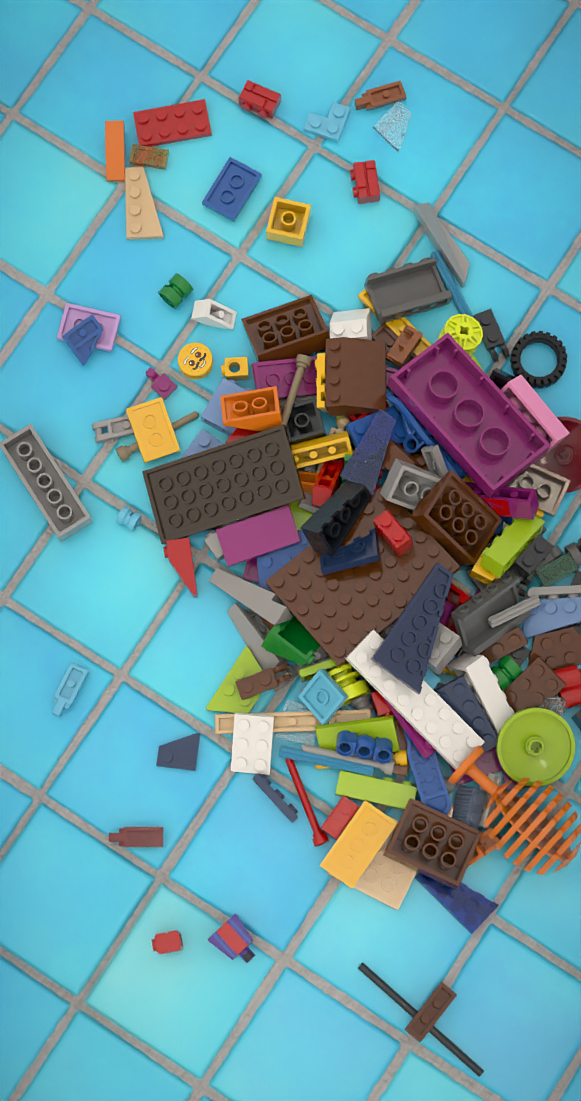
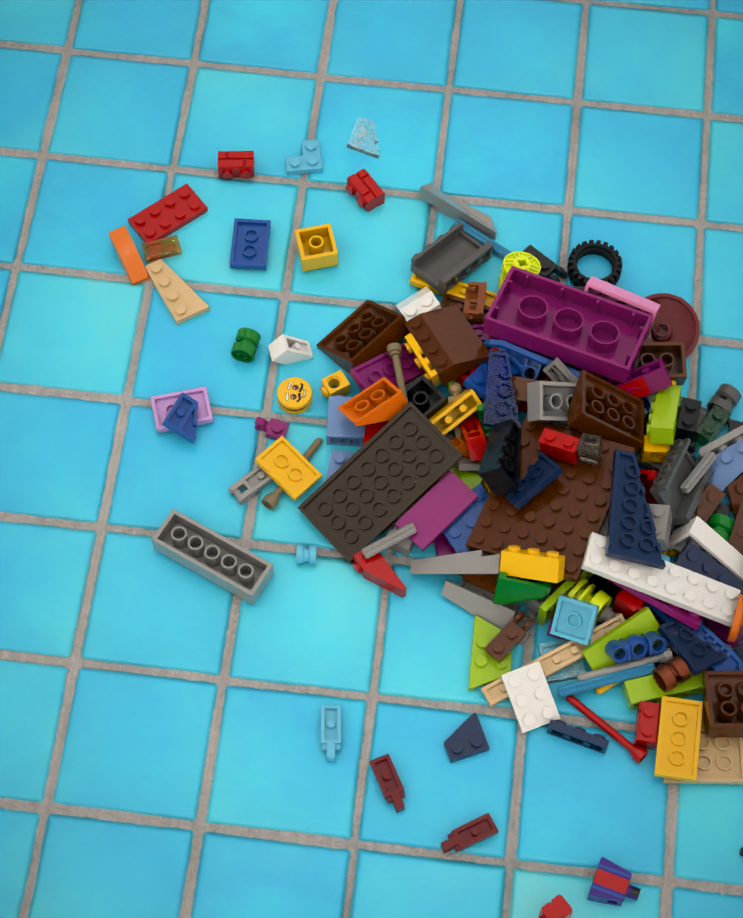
camera: 30 degrees left, 15 degrees down
(94, 757) = (388, 781): none -> dark red hinge
(202, 543) = (389, 540): none -> light grey axle
(306, 633) = (532, 564): none -> yellow brick
(381, 96) = (340, 120): dark orange hinge -> none
(381, 786) = (672, 673): none -> copper wheel
(410, 773) = (696, 653): none -> dark blue wing
(415, 550) = (589, 449): none -> clear smoke brick

